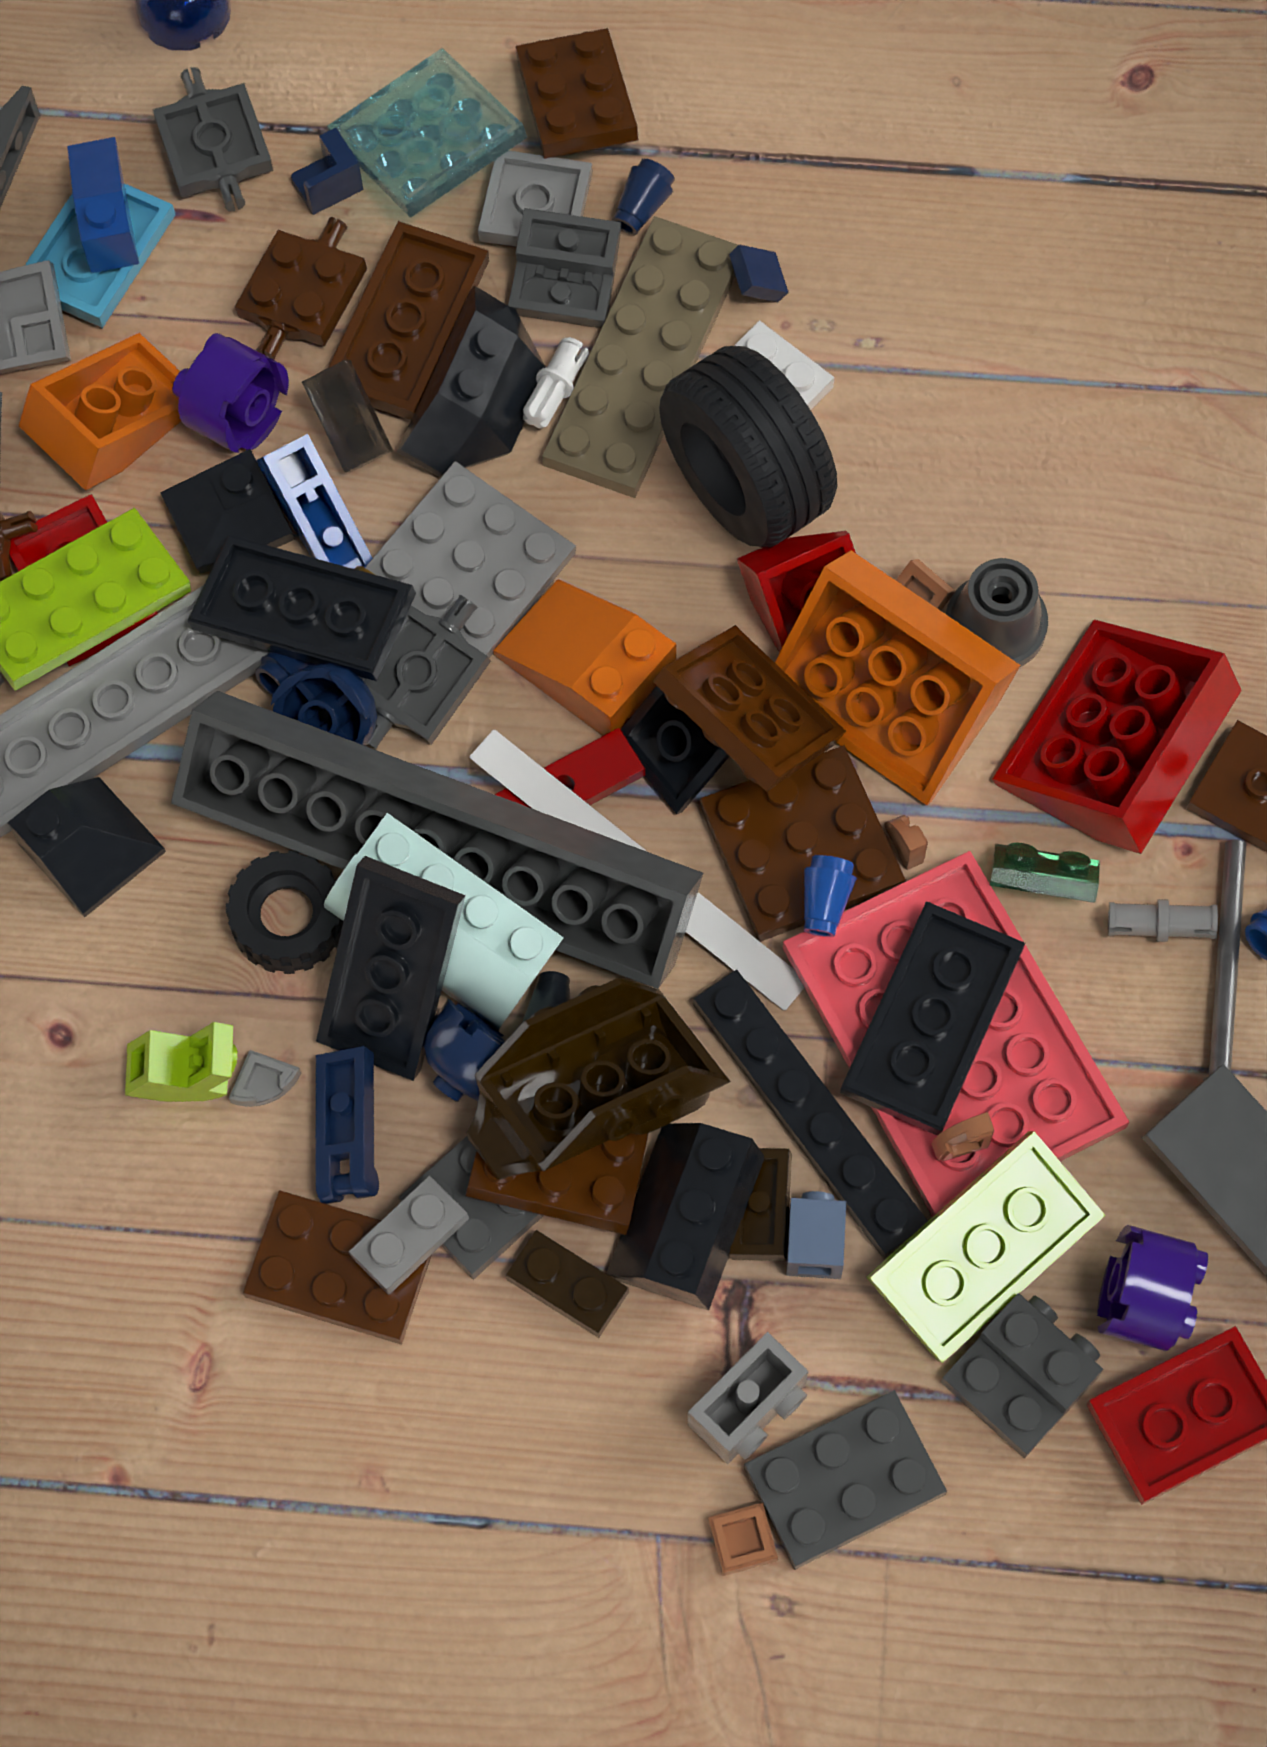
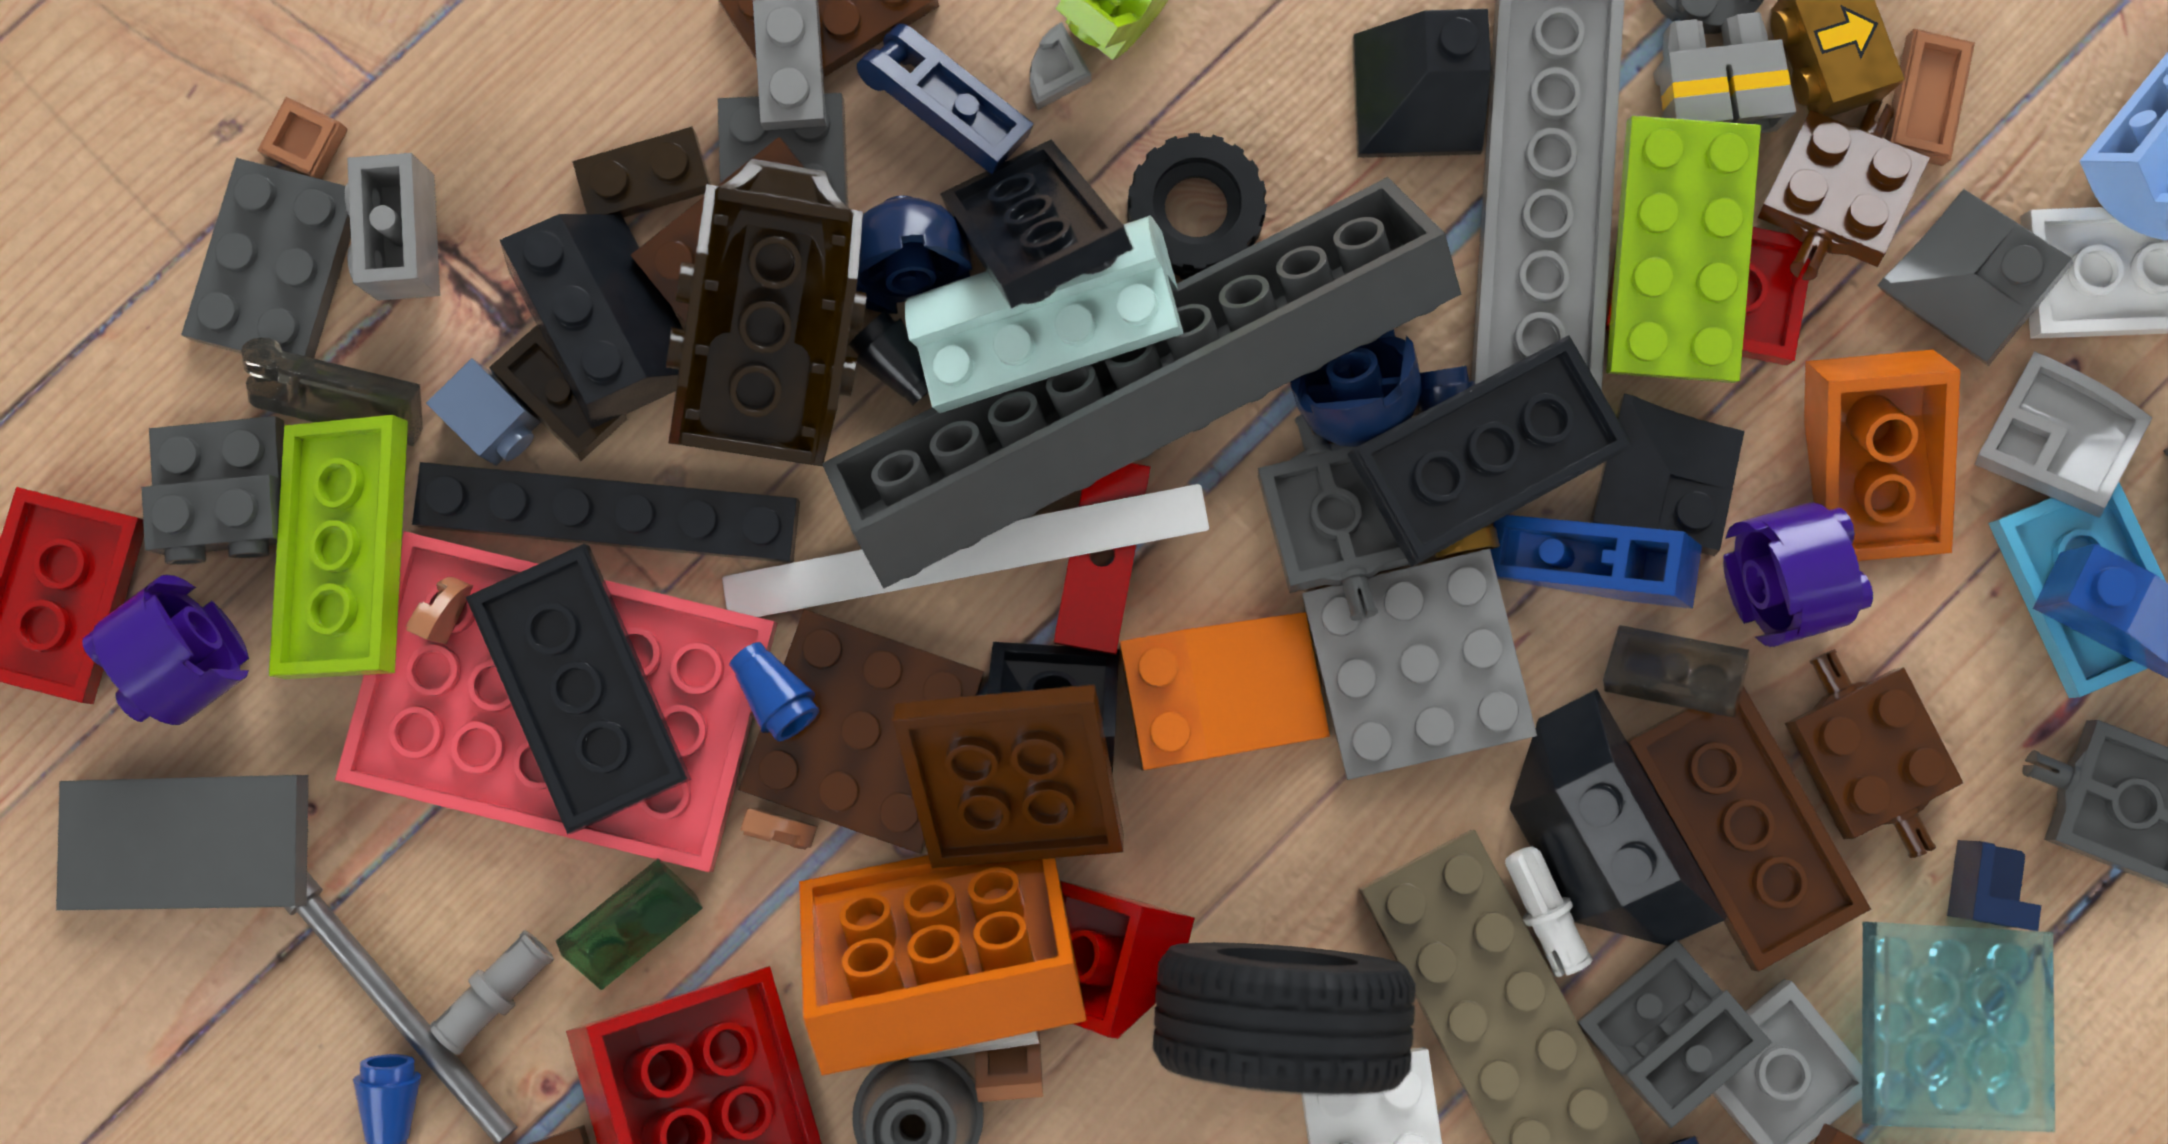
camera: 130 degrees right, 15 degrees up
(894, 1352) = (325, 390): none -> clear smoke plate

